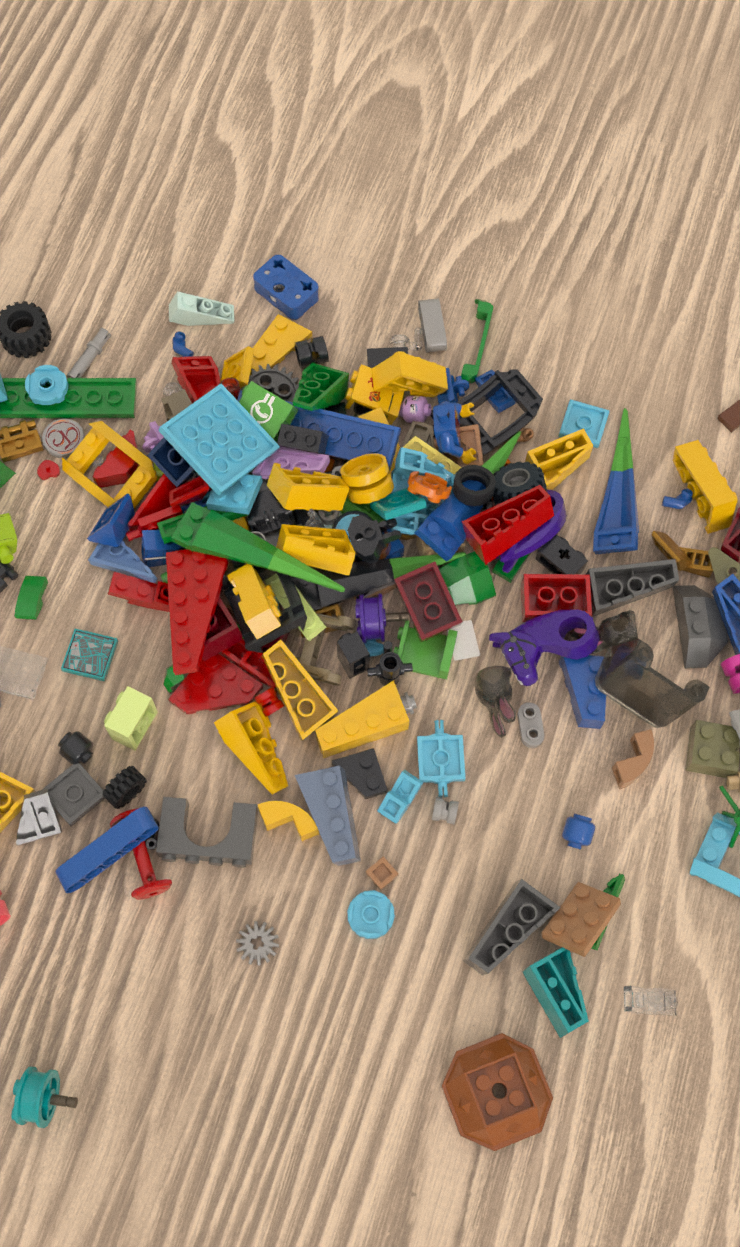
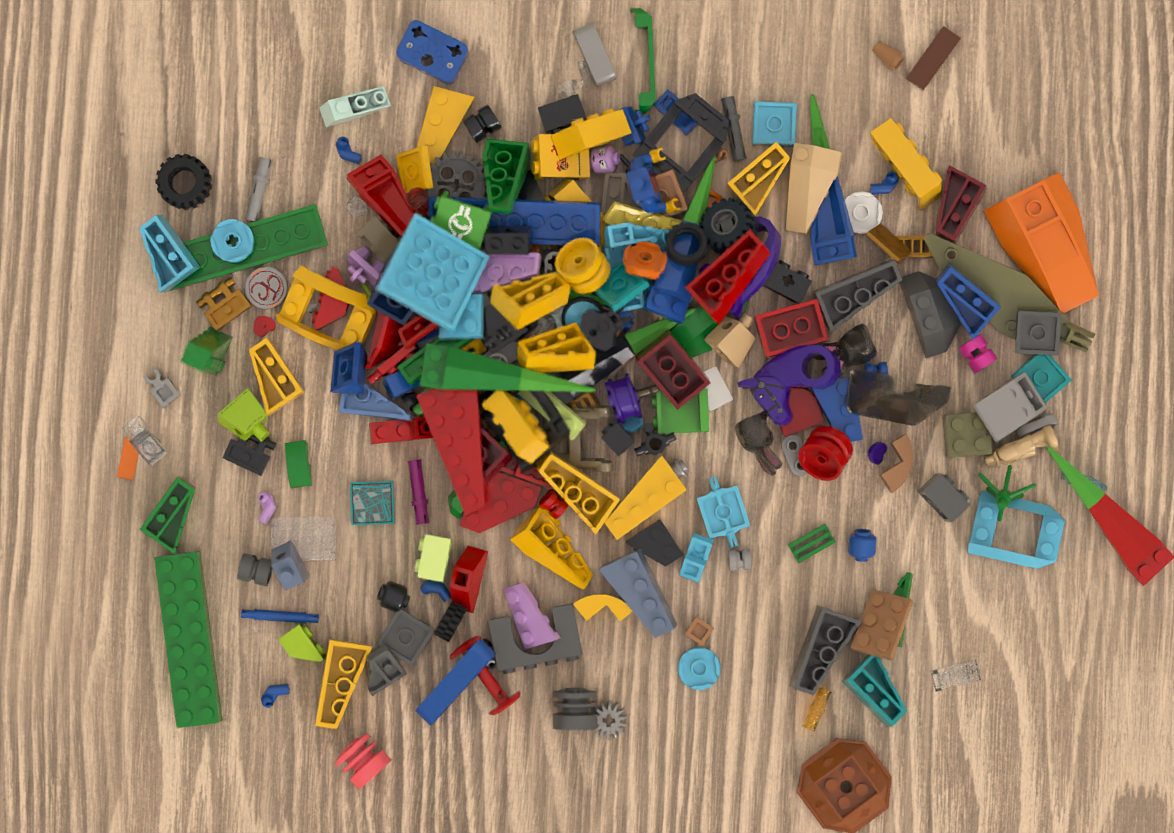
camera: 10 degrees left, 20 degrees up
(38, 512) = (274, 377): none -> yellow wedge
(122, 752) = (433, 586): none -> blue arm
(137, 661) = (418, 491): none -> magenta pin
(157, 750) = (468, 577): none -> red slope
(160, 567) = (410, 400): none -> black hinge
(207, 811) = (530, 622): none -> lavender wing
(223, 916) = (574, 709): none -> dark grey wheel
(487, 995) = (817, 709): none -> clear yellow pin
(494, 594) = (732, 339): none -> tan torso
(544, 416) = (734, 131): none -> dark grey pin
(544, 811) = (827, 534): none -> green tile
(549, 686) = (804, 410): none -> red tile
(562, 723) = (825, 453): none -> red wheel
(606, 474) = (809, 181): none -> tan wedge
(614, 743) = (876, 452): none -> dark purple piece
(652, 517) = (864, 211): none -> white tile
(677, 802) = (944, 497): none -> dark grey brick
(707, 394) = (889, 56): none -> medium nougat cone

